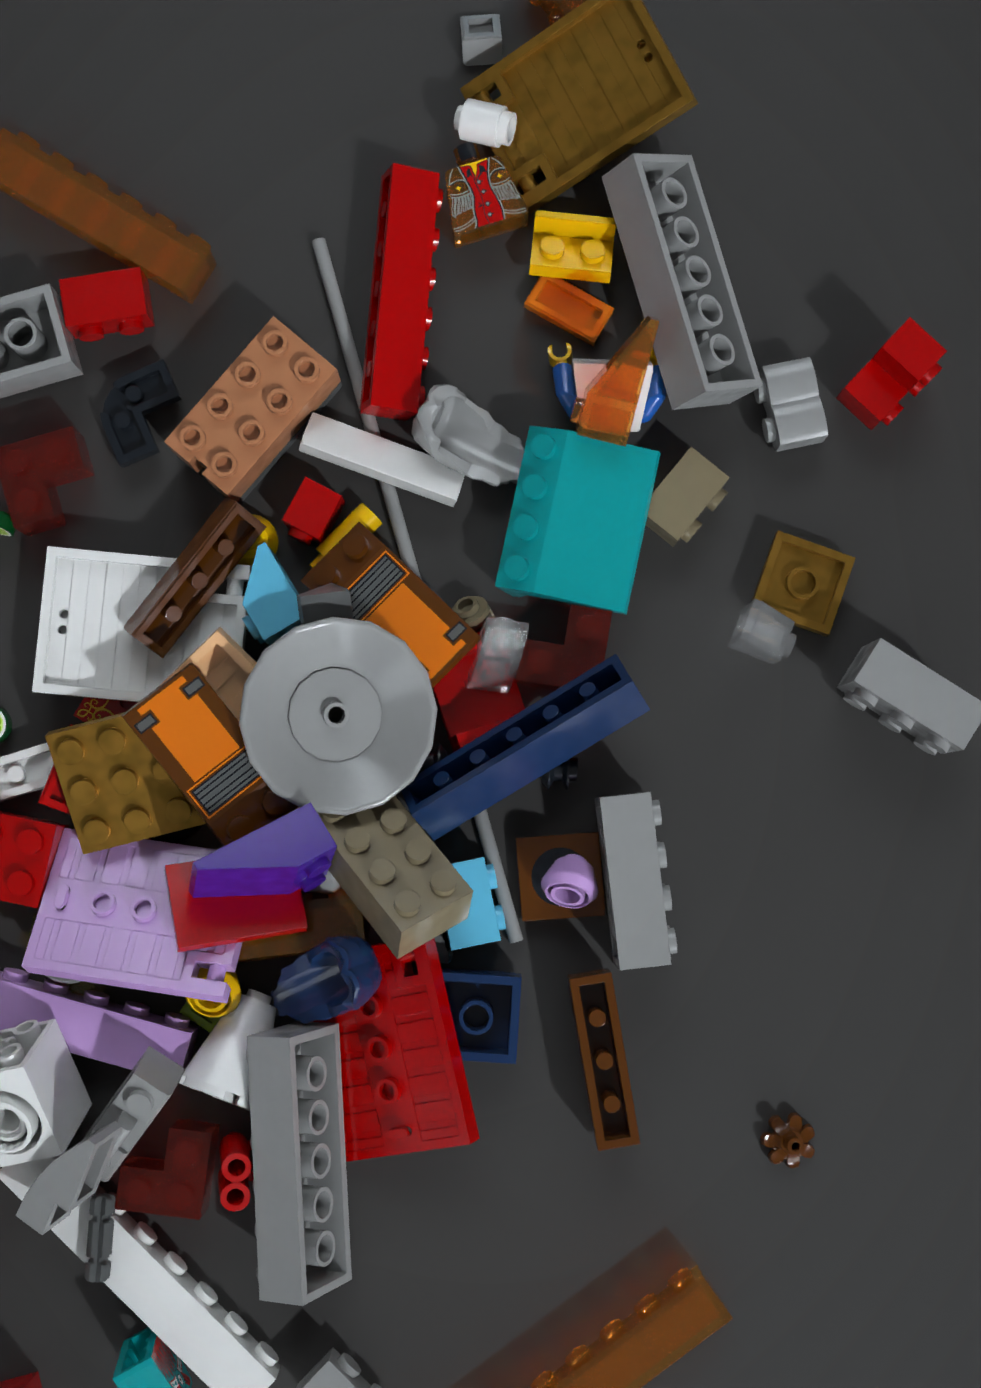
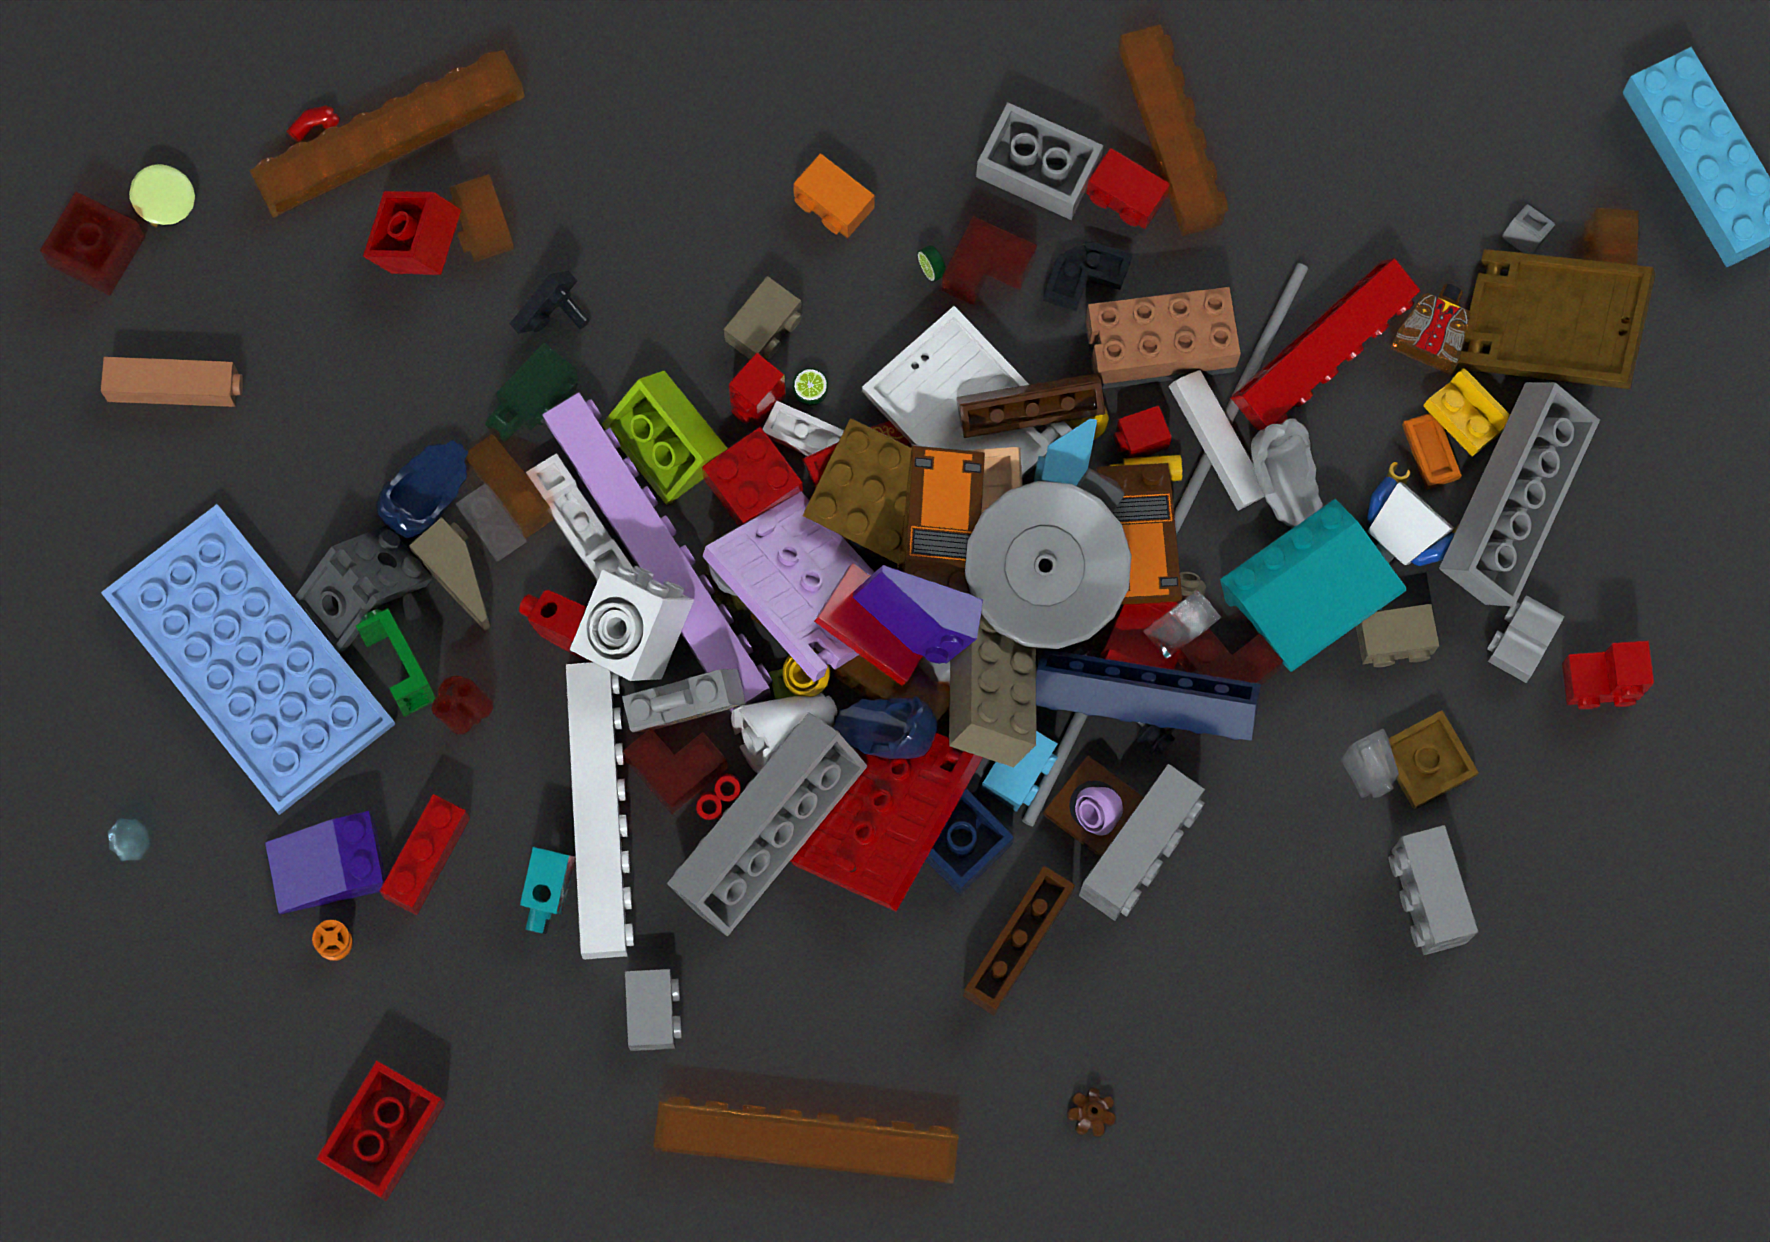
camera: 40 degrees right, 10 degrees down
(68, 1180) = (620, 698): light grey slope -> none
(100, 1237) = (598, 759): dark grey axle -> none
(485, 123) = (1479, 284): white brick -> none
(613, 394) = (1404, 524): clear orange slope -> none

